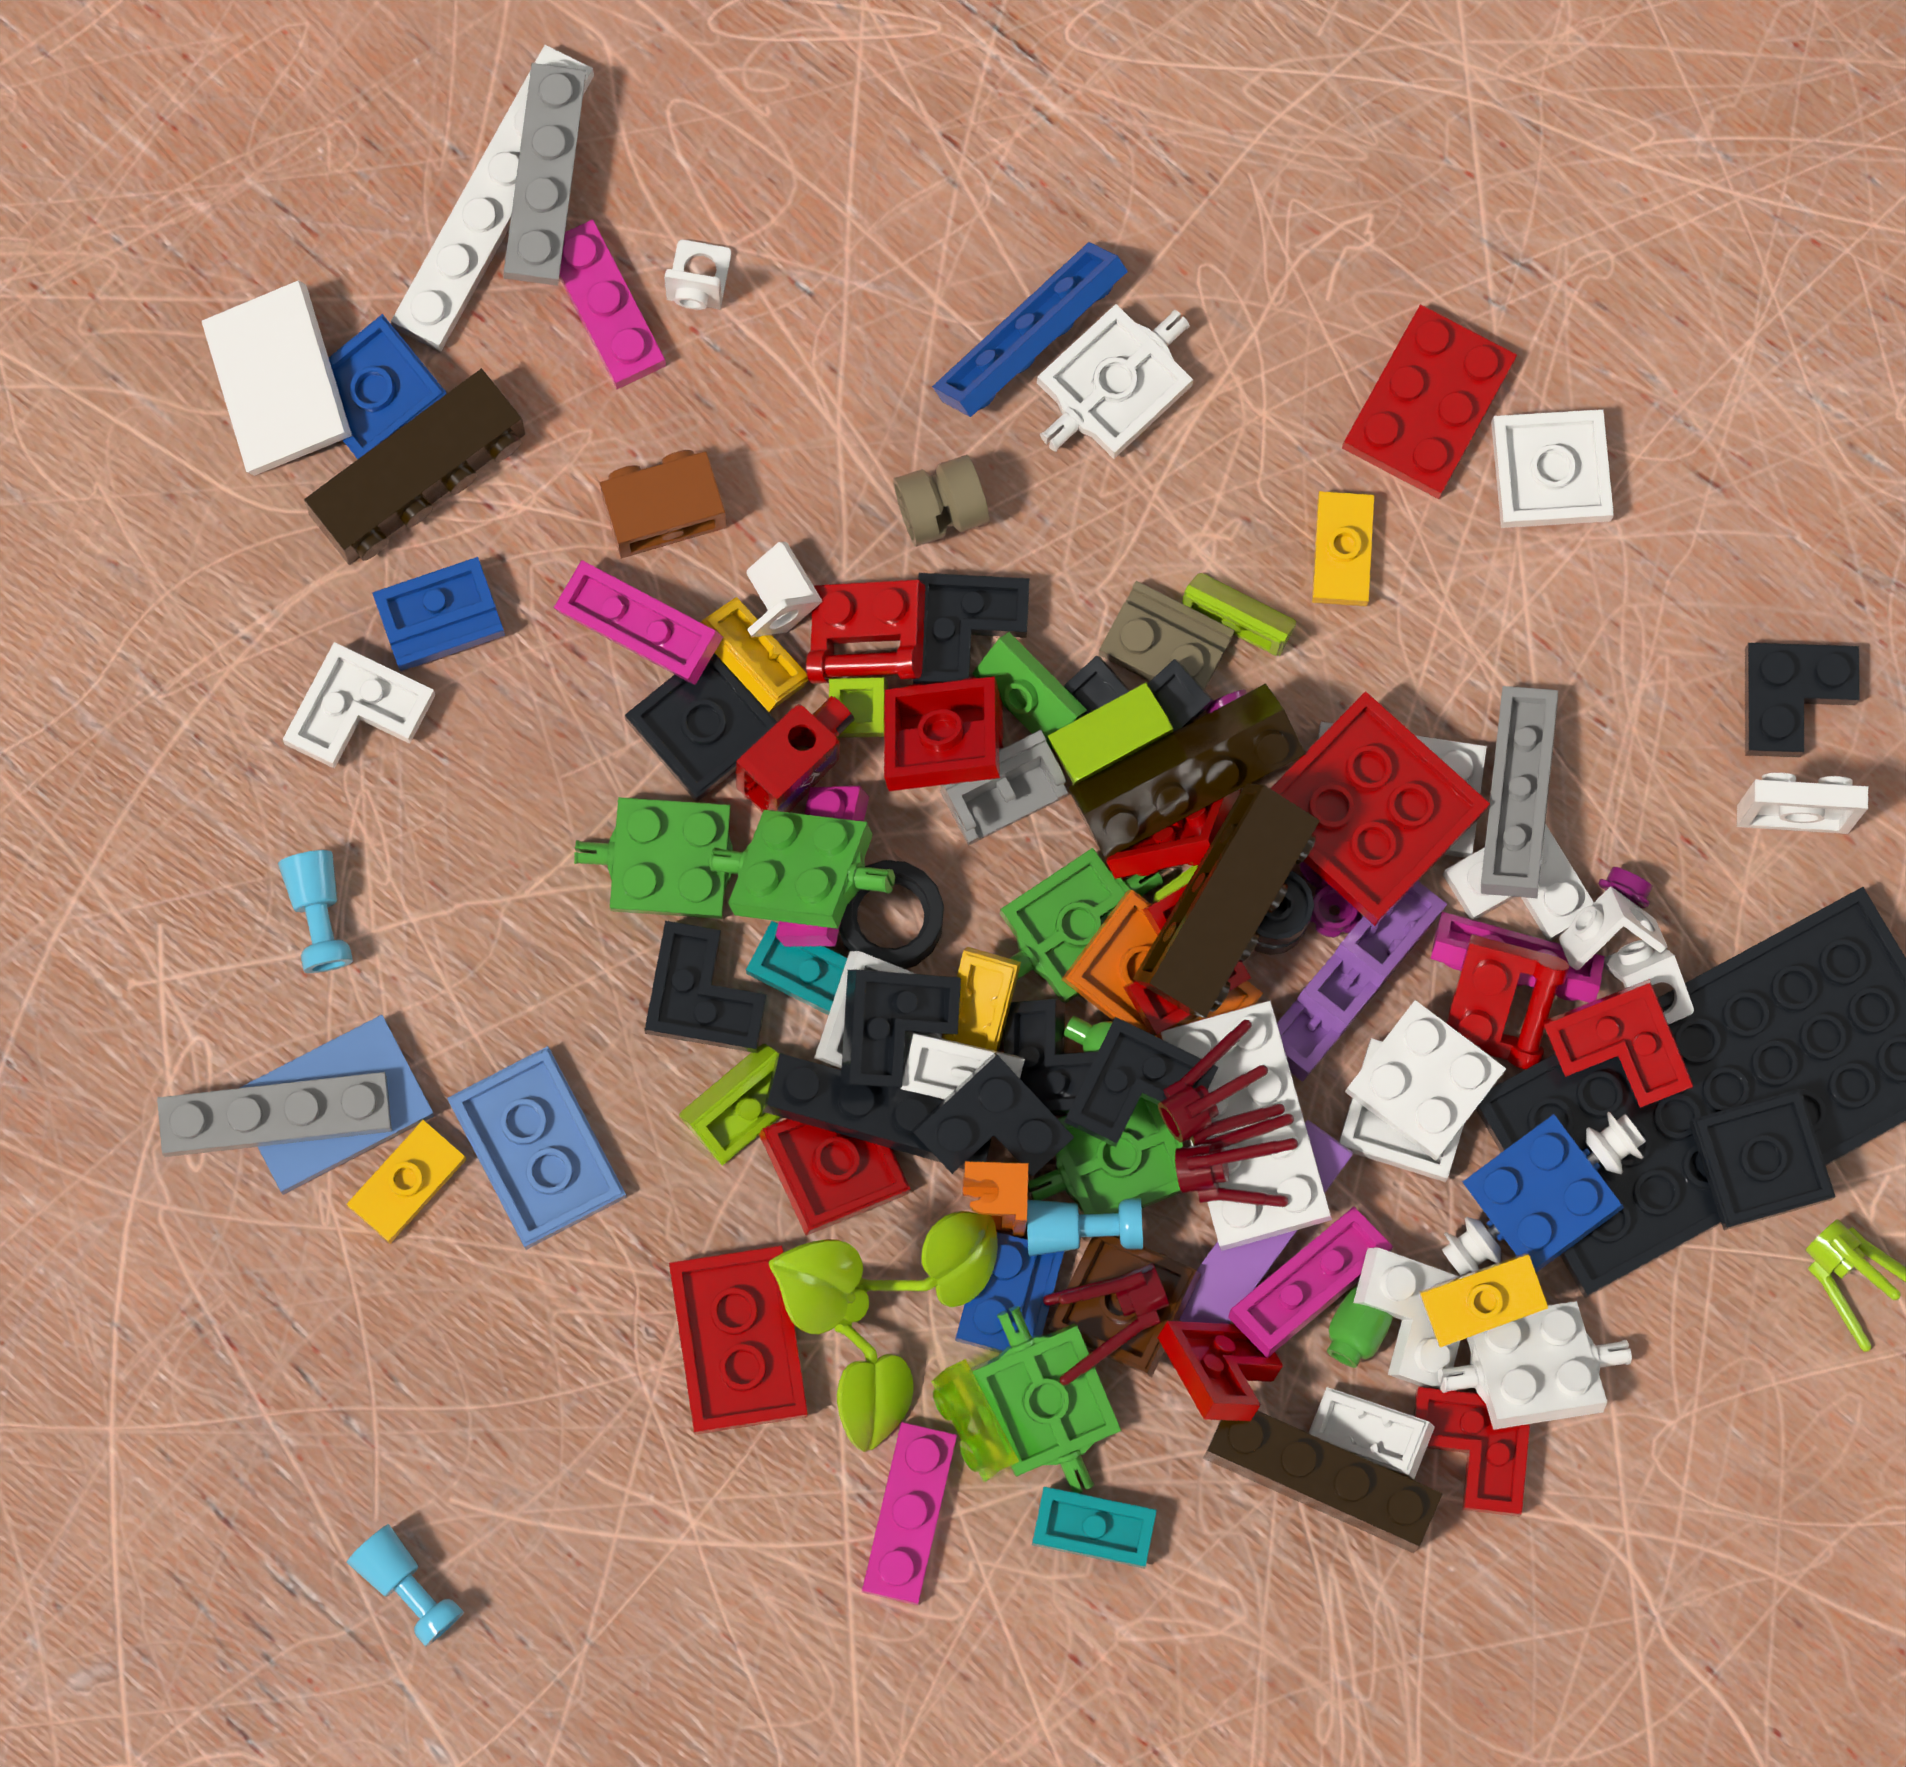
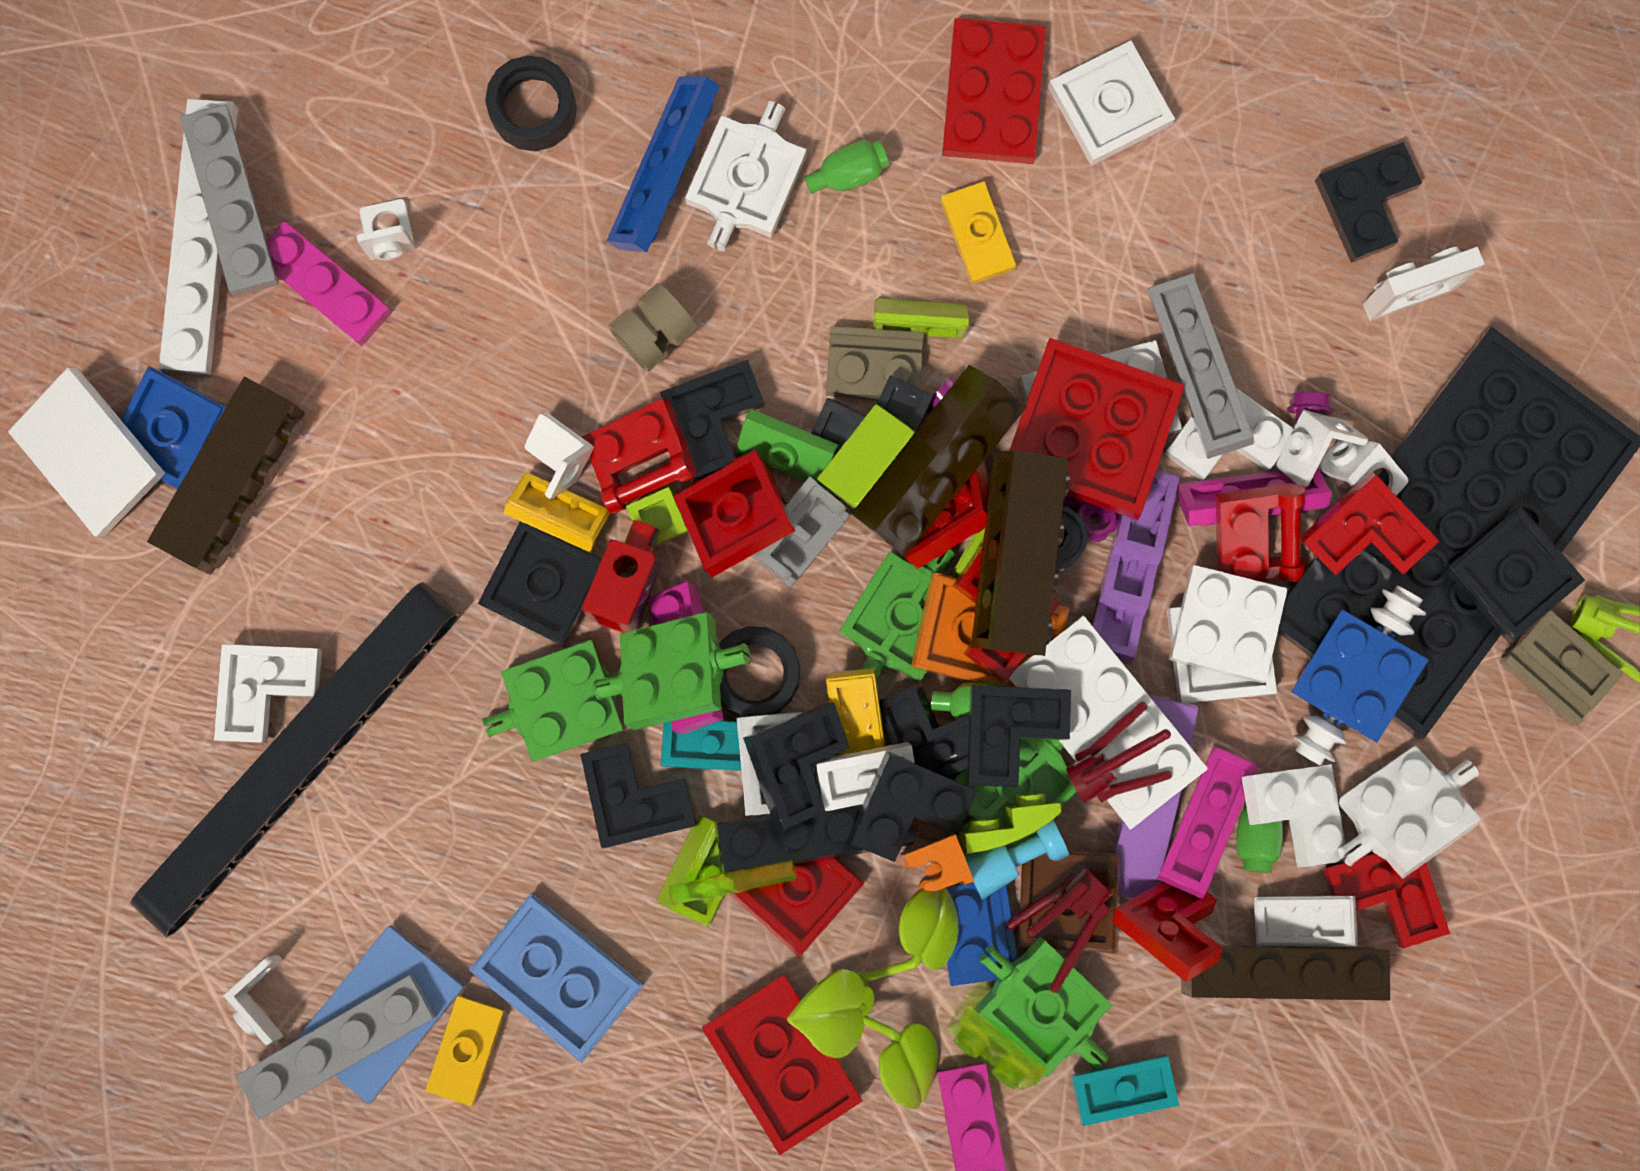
camera: 20 degrees left, 5 degrees up
(202, 1011) = (248, 1013): none -> white bracket
(312, 890) = (288, 850): medium azure piece -> none
(360, 796) = (294, 760): none -> black beam
(438, 614) = (296, 585): blue plate -> none
(638, 622) = (456, 525): dark pink plate -> none
(663, 502) = (434, 422): dark orange brick -> none
(769, 1121) = (732, 882): none -> clear neon green piece
(919, 164) = (523, 70): none -> black tyre
(1109, 1186) = (1020, 819): none -> lime slope
(1190, 1110) = (1068, 737): dark red plant -> none
(1232, 418) = (849, 167): none -> bright green plant
(1483, 1300) = (1352, 781): yellow plate -> none
(1775, 1287) = (1561, 668): none -> dark tan plate

